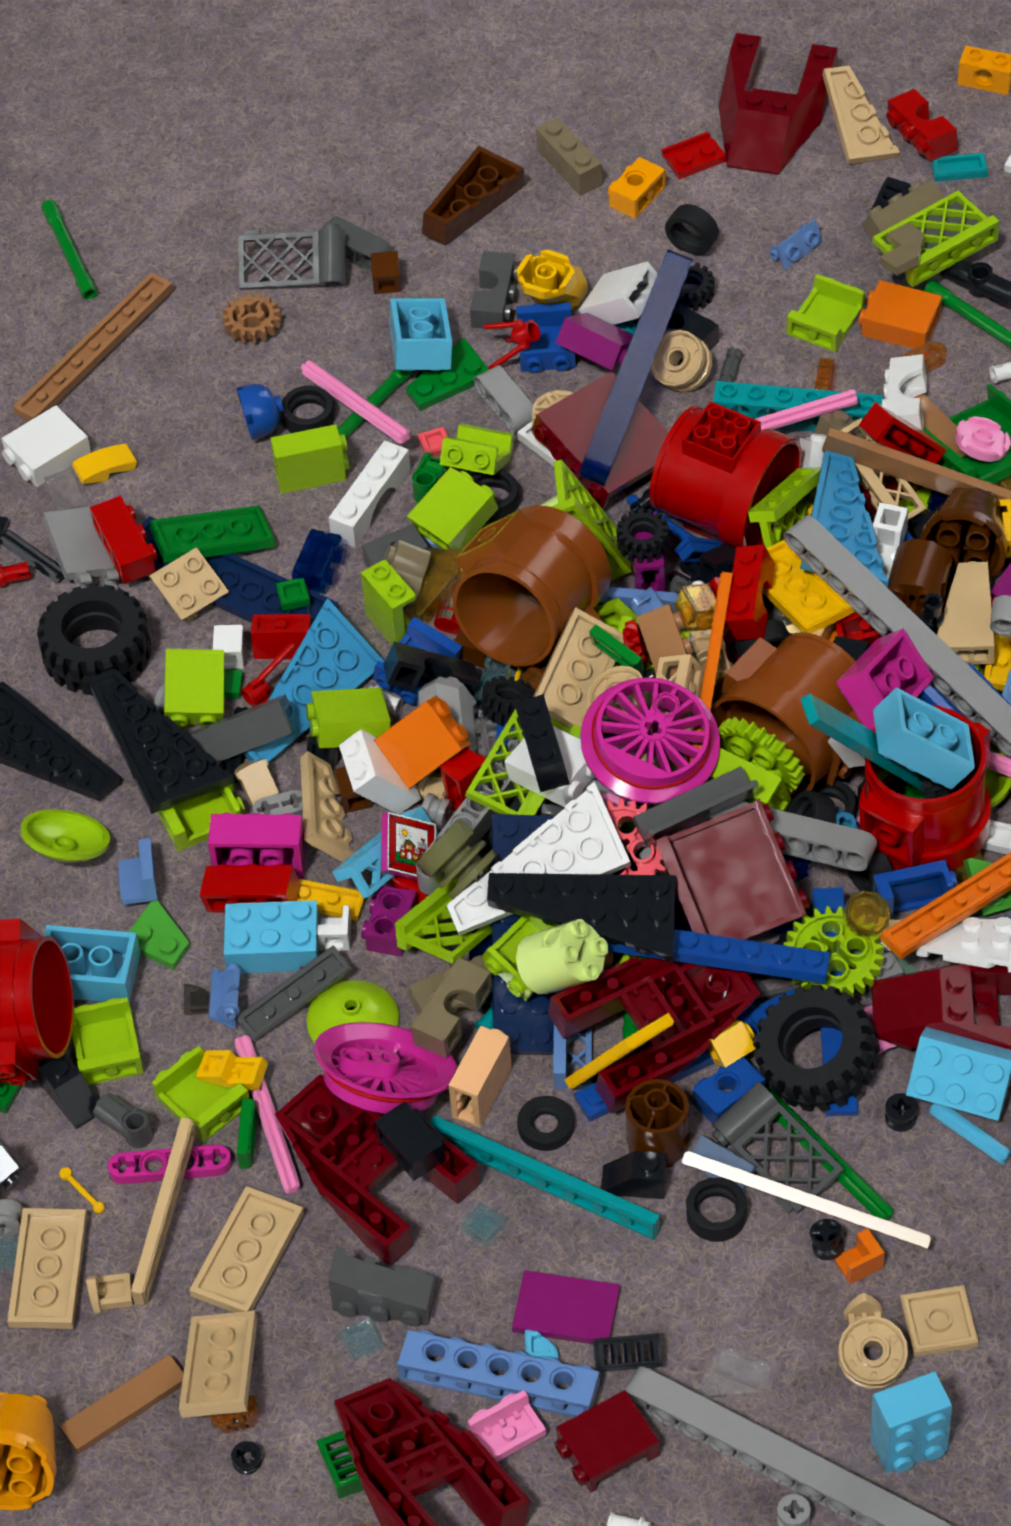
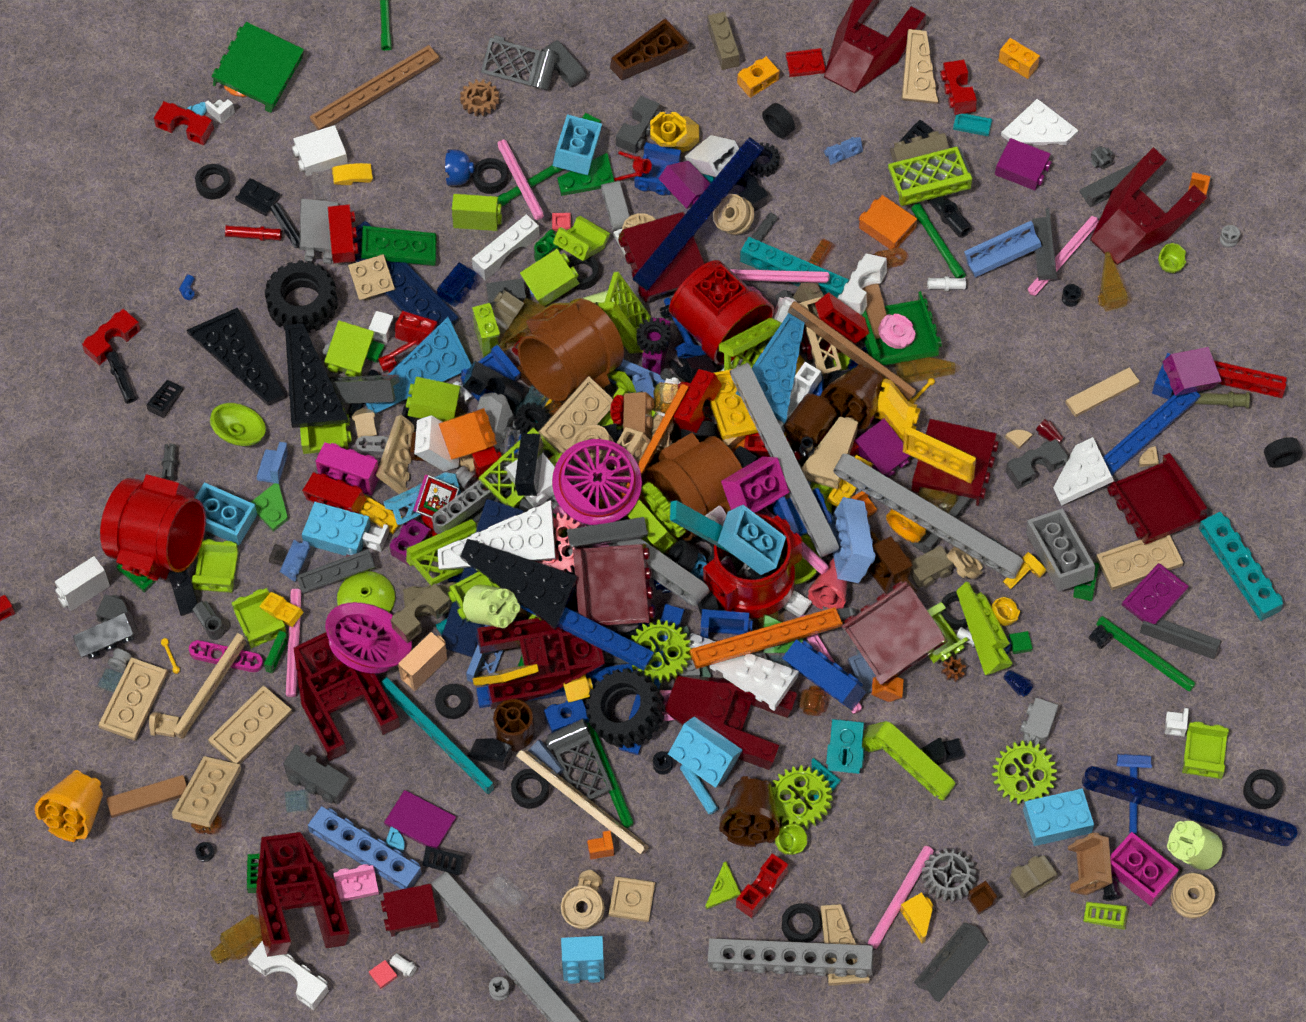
camera: 15 degrees right, 10 degrees up
(293, 594) = (432, 303): green tile -> none
(385, 272) = (575, 90): reddish brown panel -> none
(410, 1140) = (362, 691): black brick -> none
(456, 859) = (454, 521): olive wheel -> none
(483, 1224) = (392, 753): clear light blue tile -> none
(615, 649) = (602, 413): green tile -> none
(826, 313) = (841, 206): lime panel -> none
(827, 1239) = (583, 824): black wheel -> none
(866, 914) = (685, 634): clear yellow hair -> none
(908, 246) = (900, 187): dark tan tile -> none

